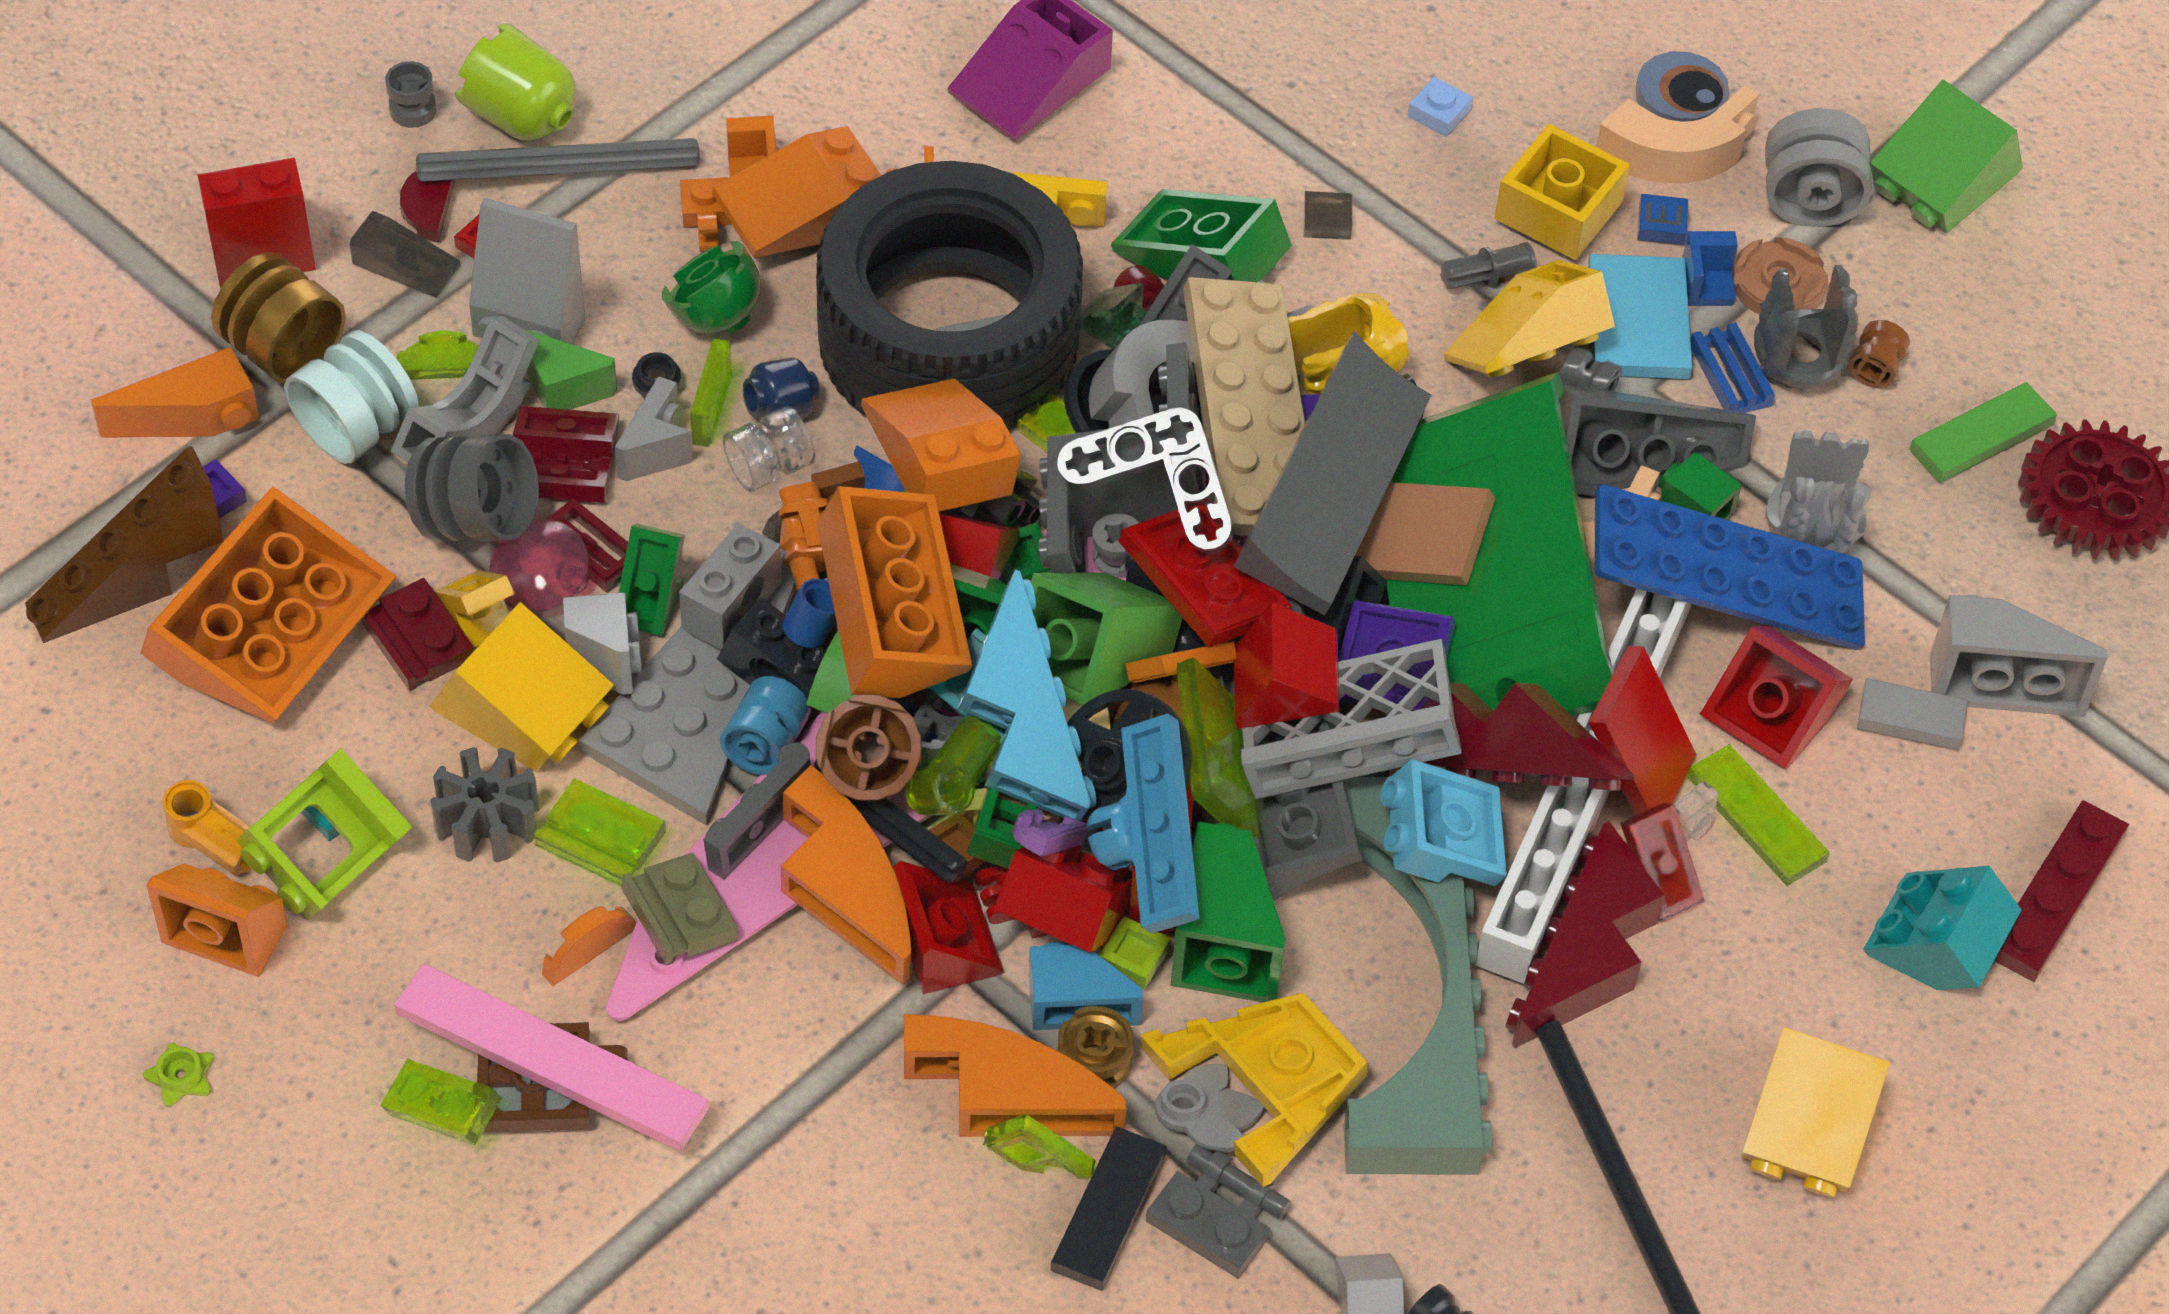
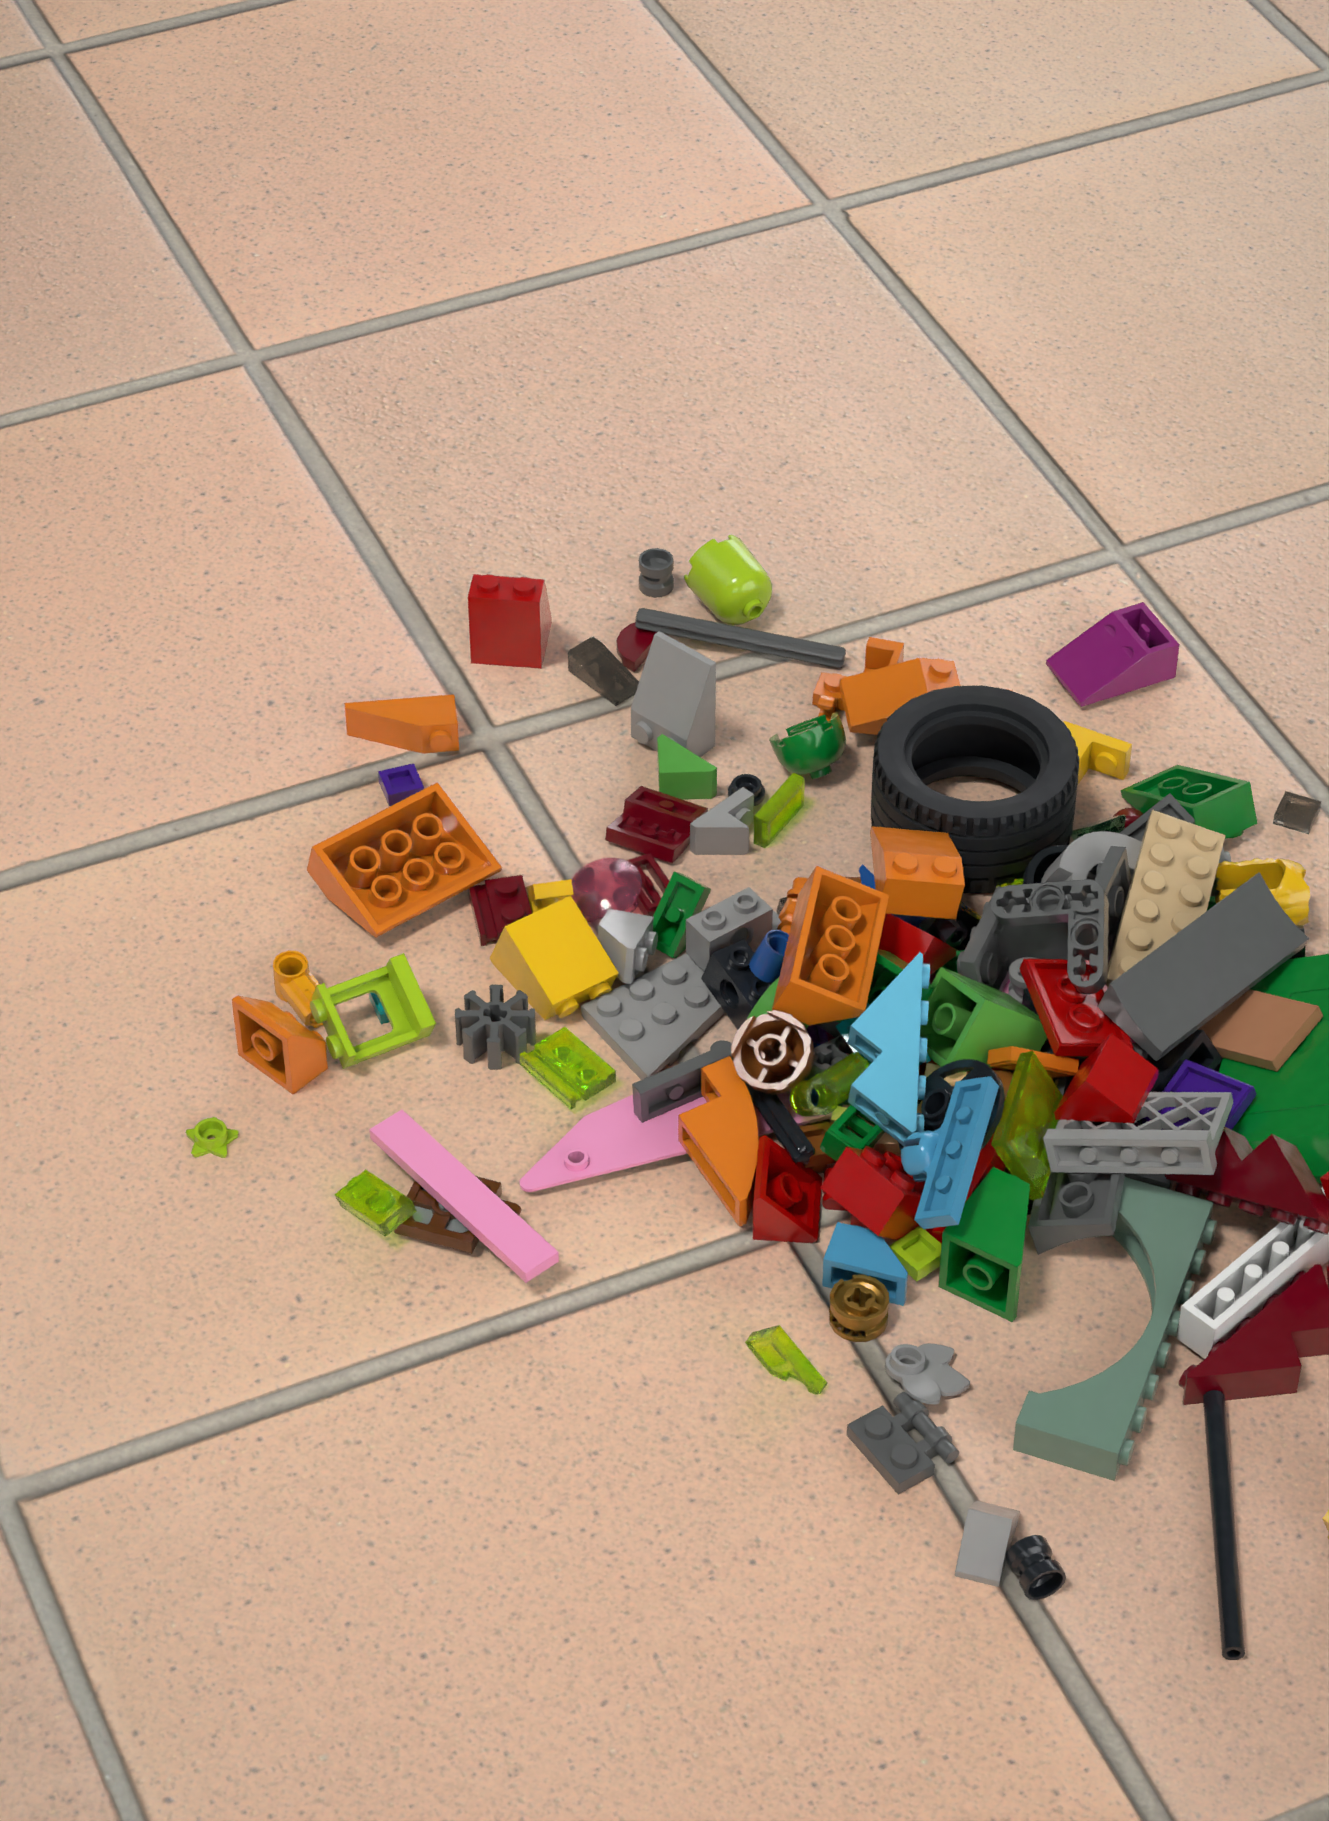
camera: 25 degrees right, 10 degrees down
(129, 555) = (321, 805): reddish brown slope -> none
(277, 315) = (495, 684): pearl gold wheel -> none
(350, 396) = (521, 745): light aqua wheel -> none
(438, 356) = (601, 742): clear neon green tile -> none
(471, 488) = (575, 821): dark grey wheel -> none
(484, 396) = (608, 779): light grey arch -> none
(587, 939) = (525, 1132): orange tile -> none
(679, 908) = (599, 1129): olive plate -> none
(764, 723) = (711, 1023): dark azure wheel -> none
(774, 446) = (800, 855): clear wheel -> none
(778, 385) = (829, 822): dark blue head -> none
(1009, 1077) = (782, 1297): orange slope -> none
(1046, 836) = (867, 1139): medium lavender tile -> none
(1108, 1208) = (821, 1416): black tile -> none
(1285, 1058) = (997, 1353): yellow wing -> none
(1443, 824) = (1184, 1225): medium azure plate -> none

